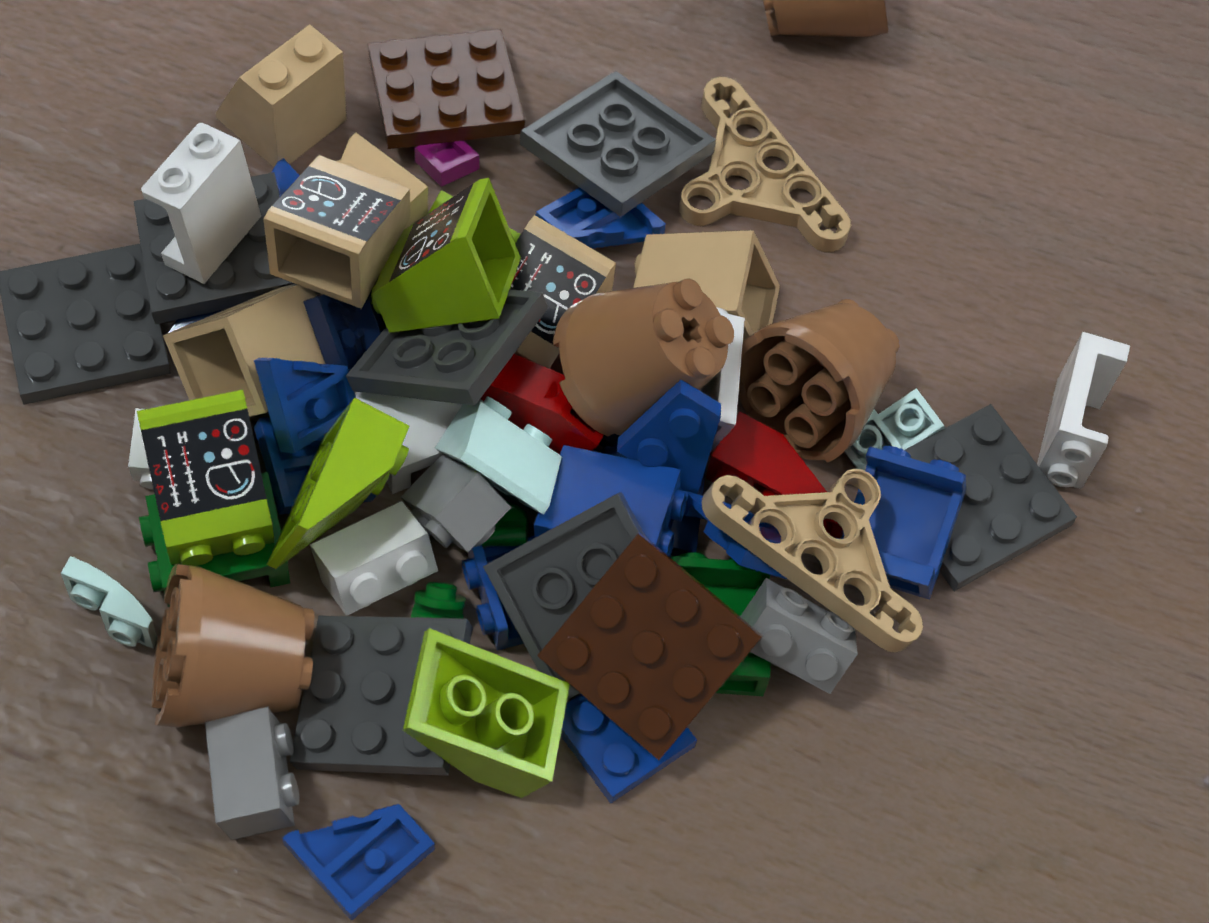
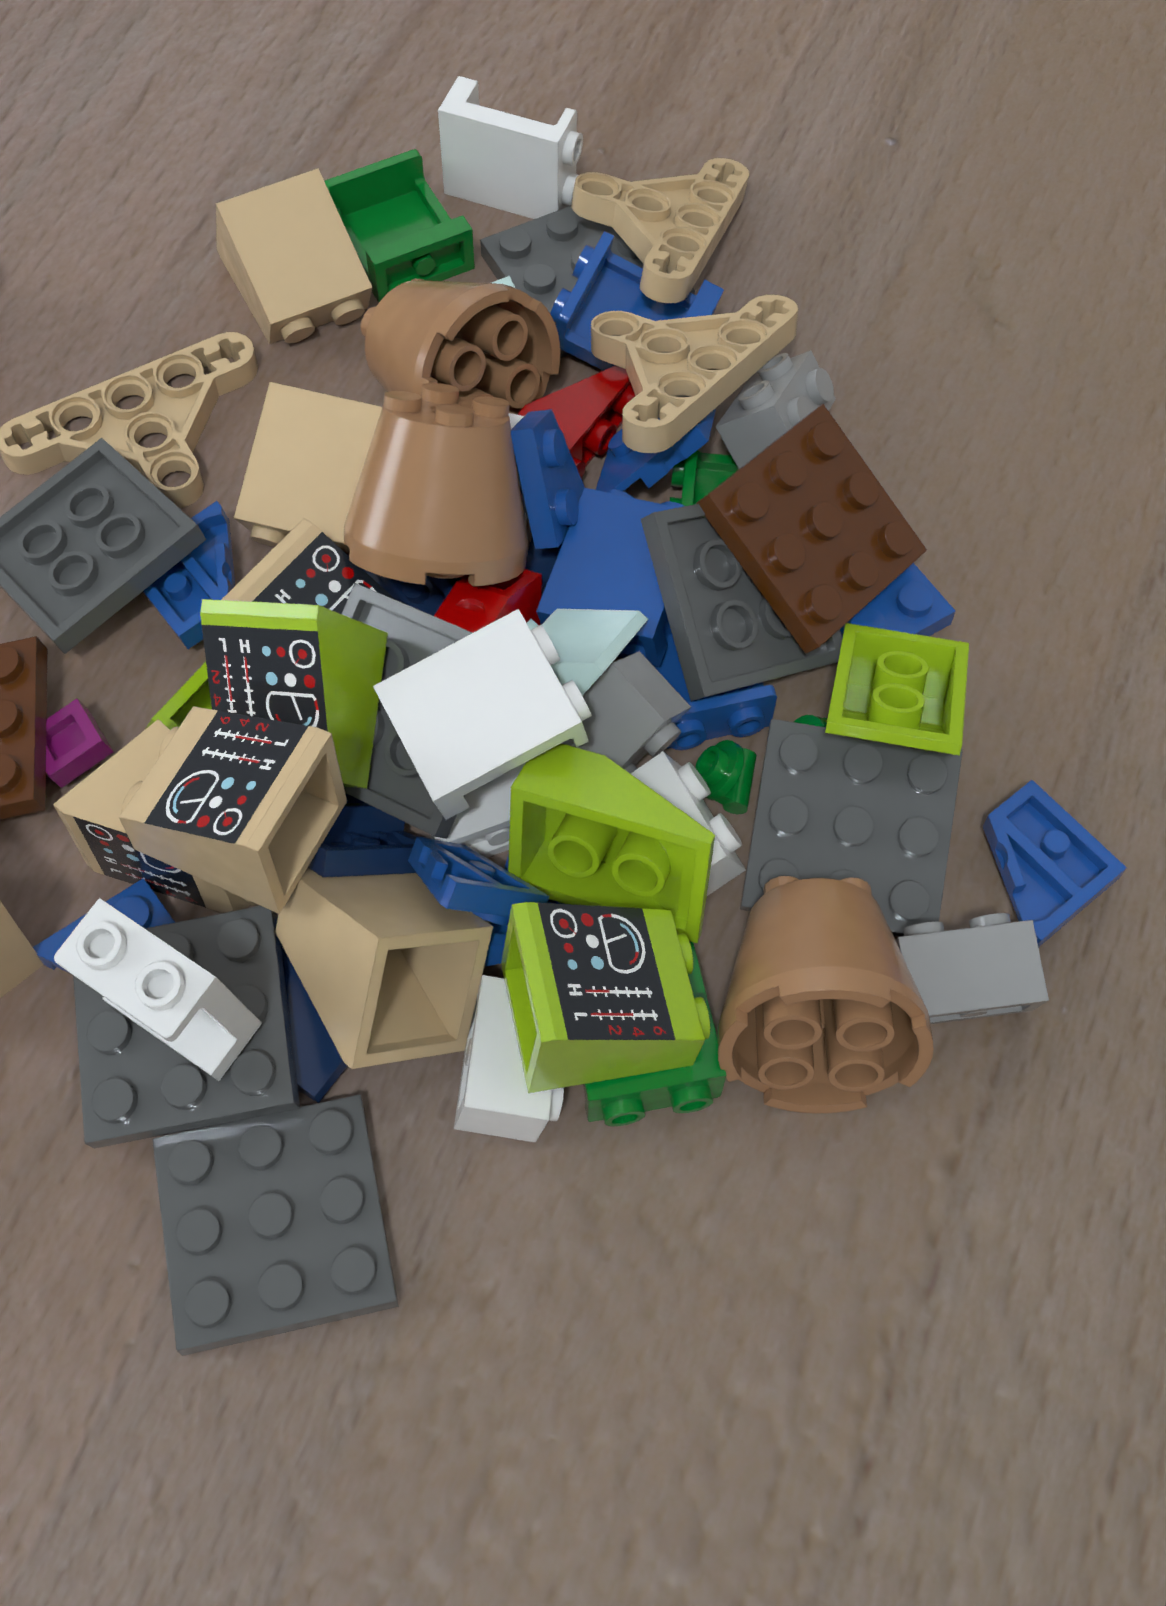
camera: 80 degrees left, 0 degrees up
(120, 610) = (740, 1145): light aqua slope -> none
(419, 377) = (482, 709): none -> white panel
(927, 255) = (292, 257): none -> tan slope
(994, 339) = (400, 224): none -> green panel
(1046, 559) = (666, 221): none -> tan beam

